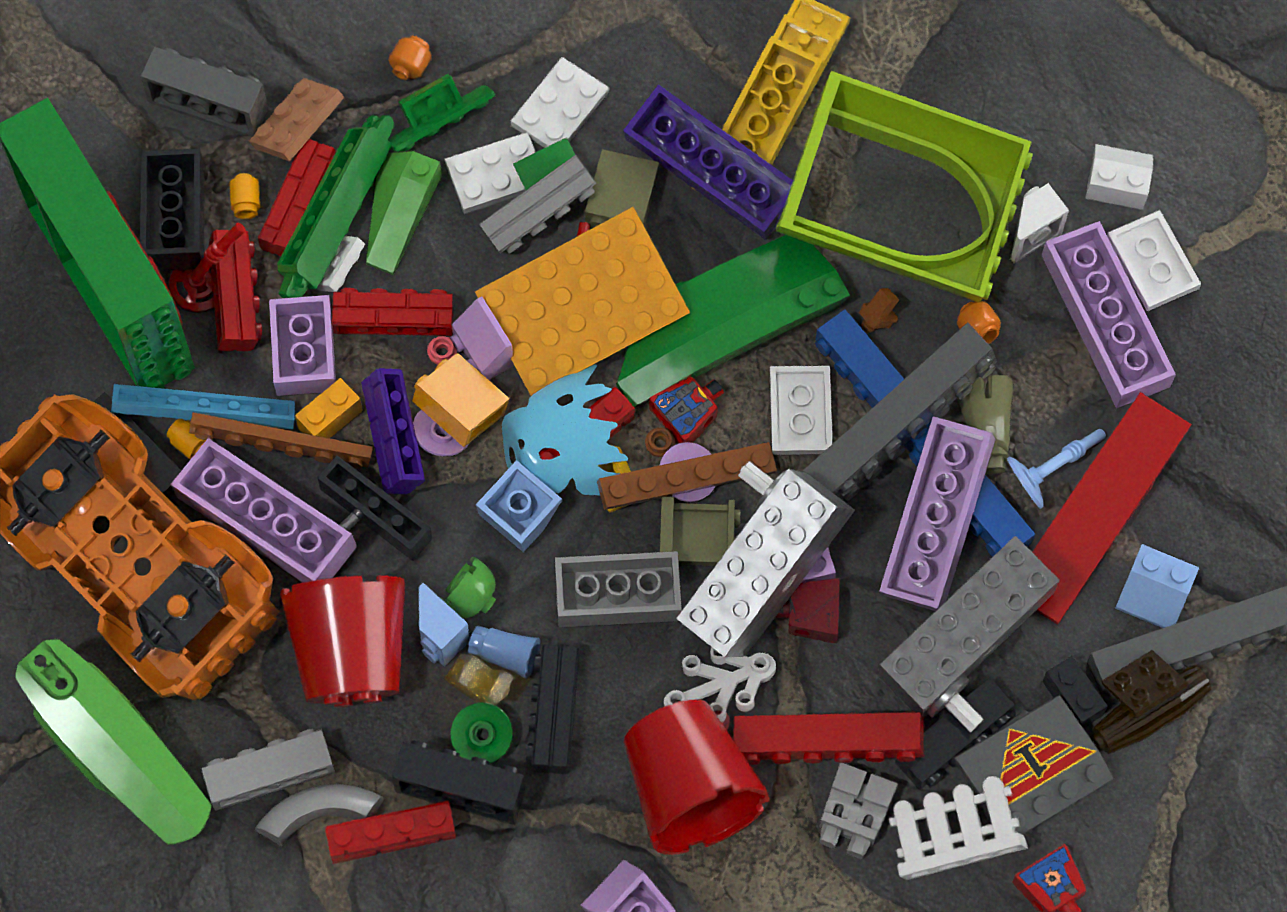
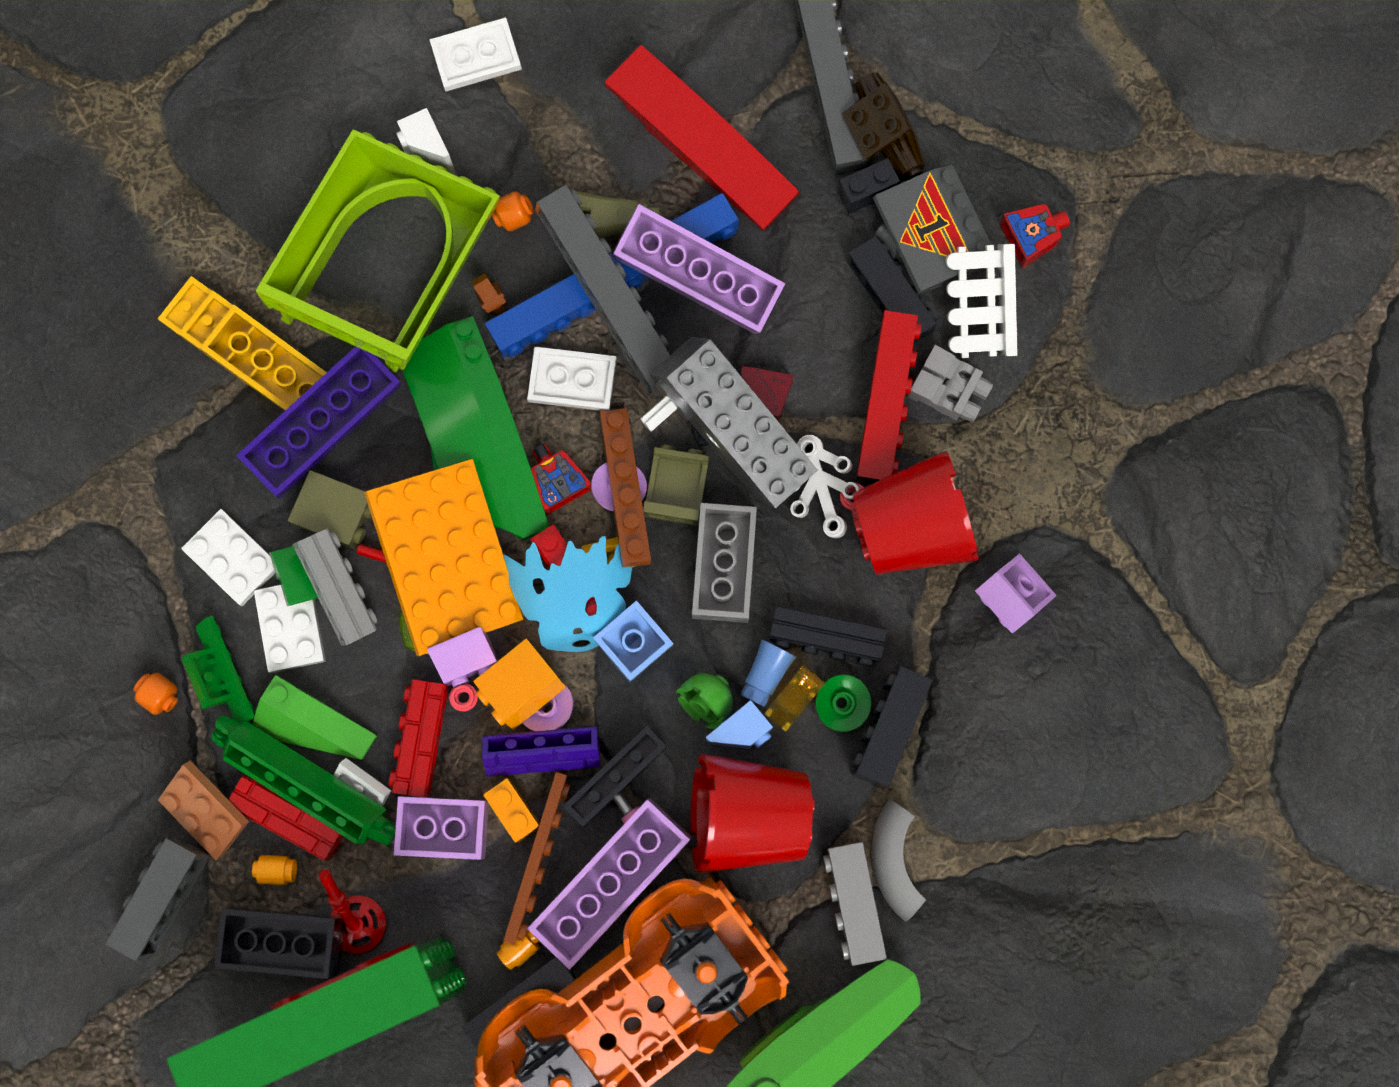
camera: 80 degrees left, 10 degrees up
(181, 405) = (490, 932): dark azure plate -> none
(234, 296) = (378, 889): red brick -> none
(390, 832) = (926, 796): red brick -> none
(659, 434) = (583, 500): dark orange plate -> none
(965, 630) = (812, 257): flat silver piece -> none
(1070, 453) = (648, 149): light blue dish -> none
(1108, 314) = (523, 98): lavender brick -> none
(1120, 177) = (389, 67): white slope -> none
(1156, 587) = (780, 103): light blue slope -> none

